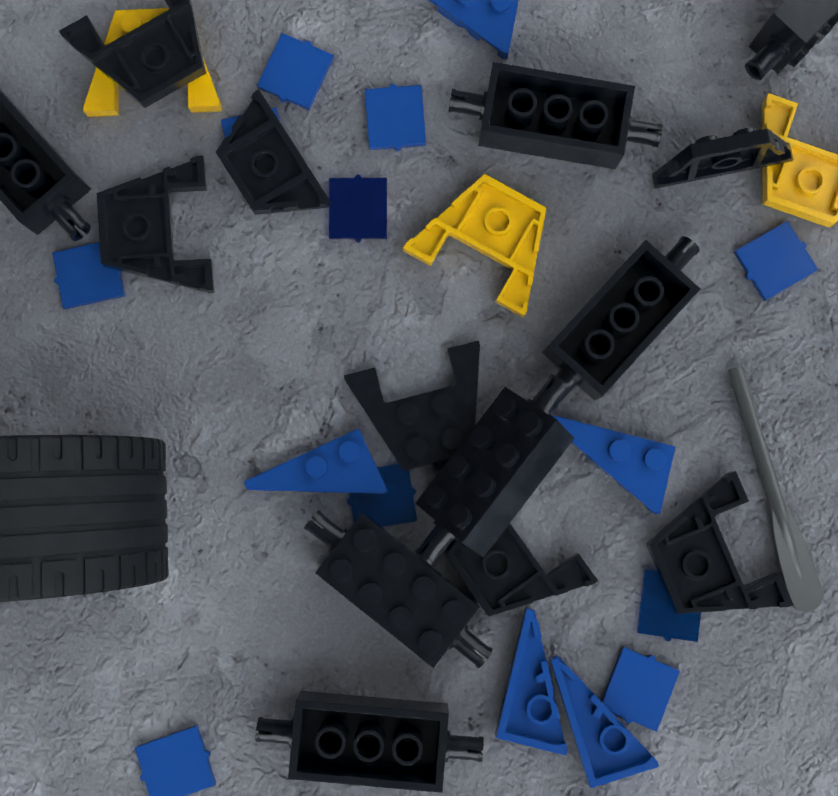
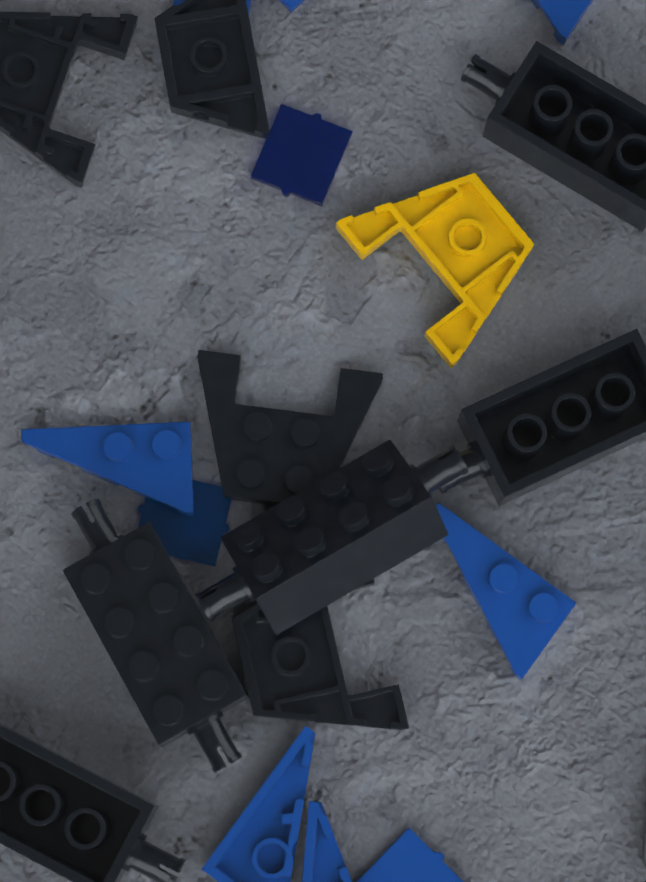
camera: 20 degrees right, 5 degrees down
(395, 117) = (394, 62): blue piece -> none
(658, 616) = (491, 801): clear blue piece -> none
(697, 561) = (545, 760): black wing -> none

